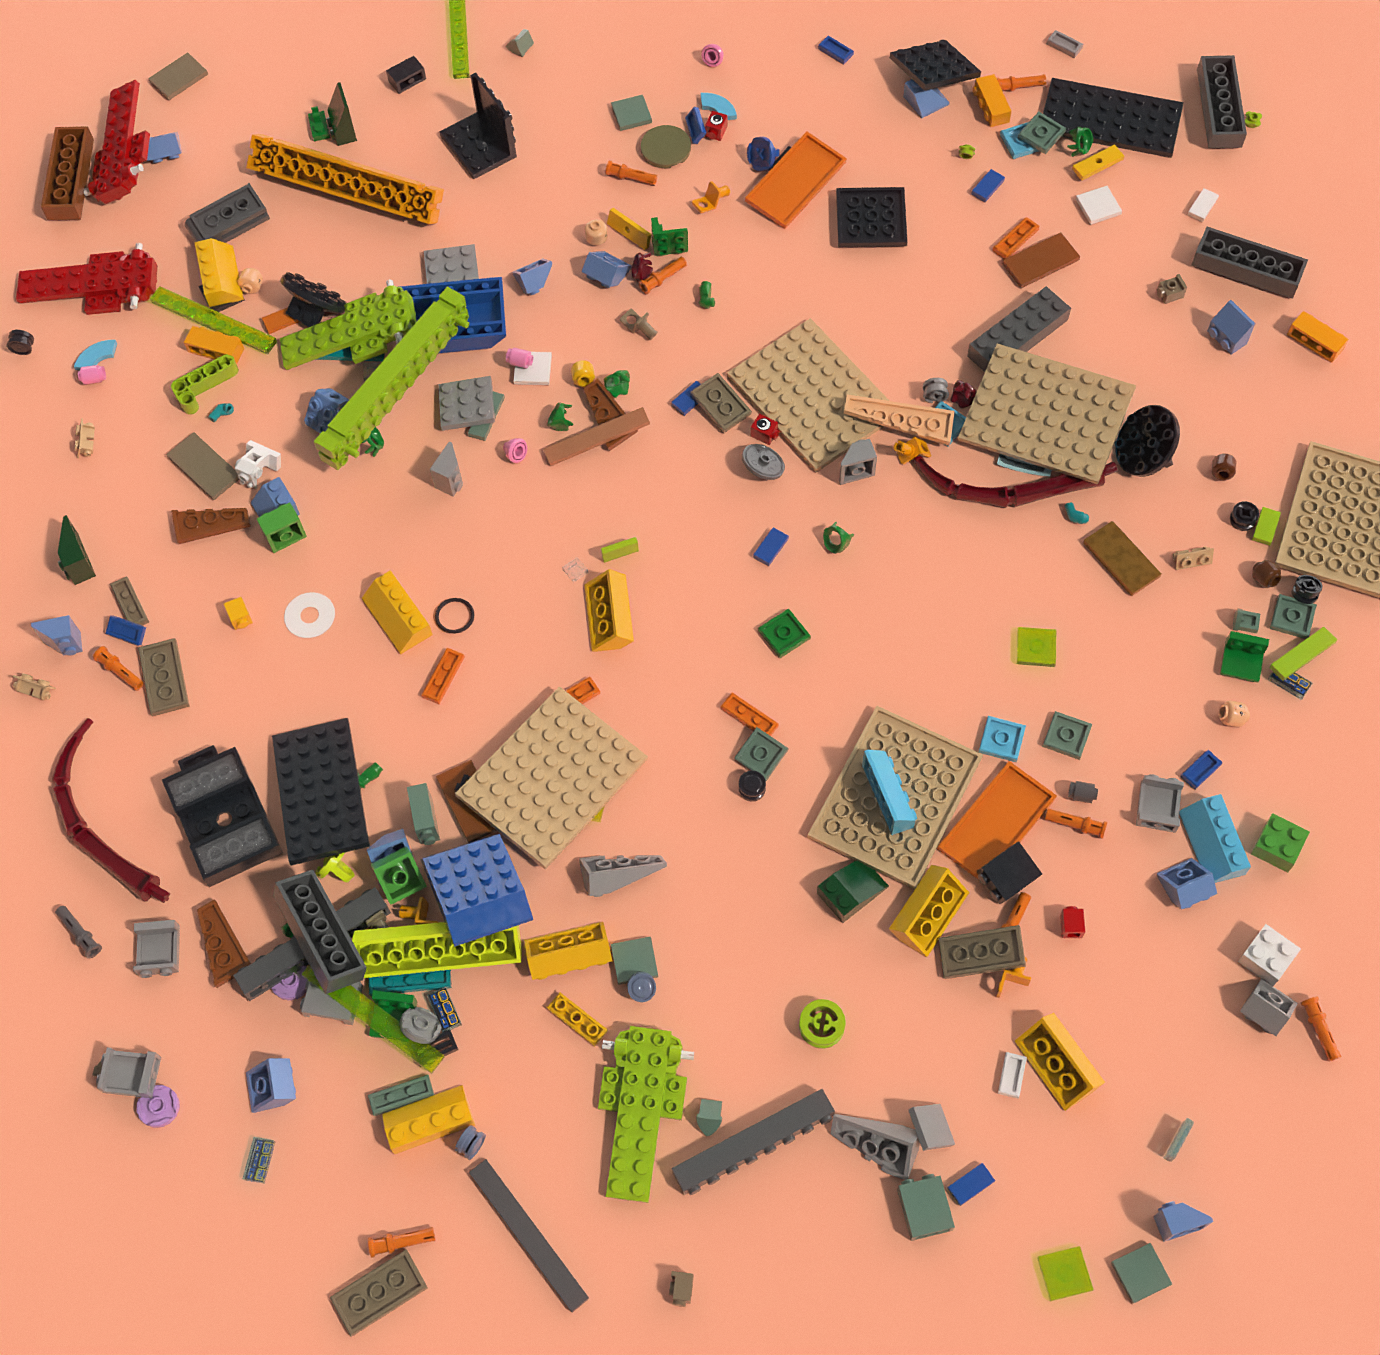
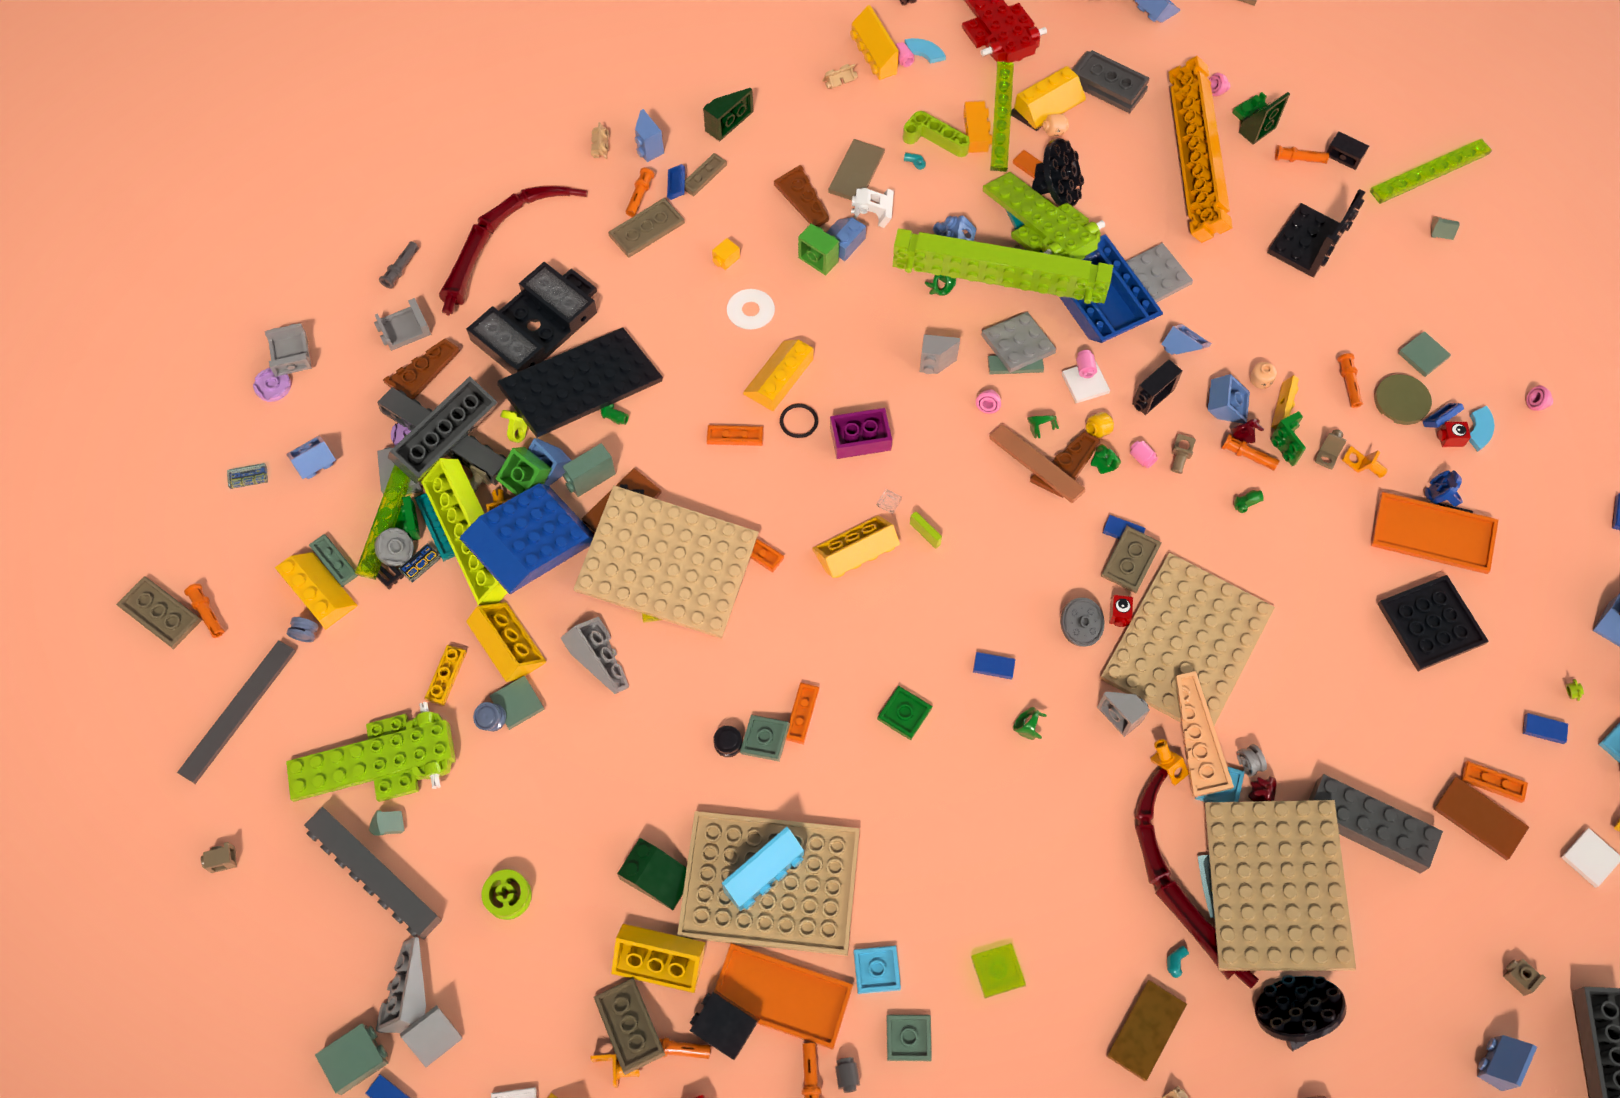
camera: 65 degrees right, 0 degrees up
(67, 391) = (875, 44): none -> yellow slope
(281, 133) = (1219, 84): none -> bright pink brick
(387, 114) = (1294, 154): none -> orange pin
(498, 565) = (860, 433): none -> magenta brick
(570, 313) = (1157, 387): none -> black window
(626, 352) = (1143, 454): none -> bright pink brick
(687, 215) = (1331, 449): none -> dark tan bracket

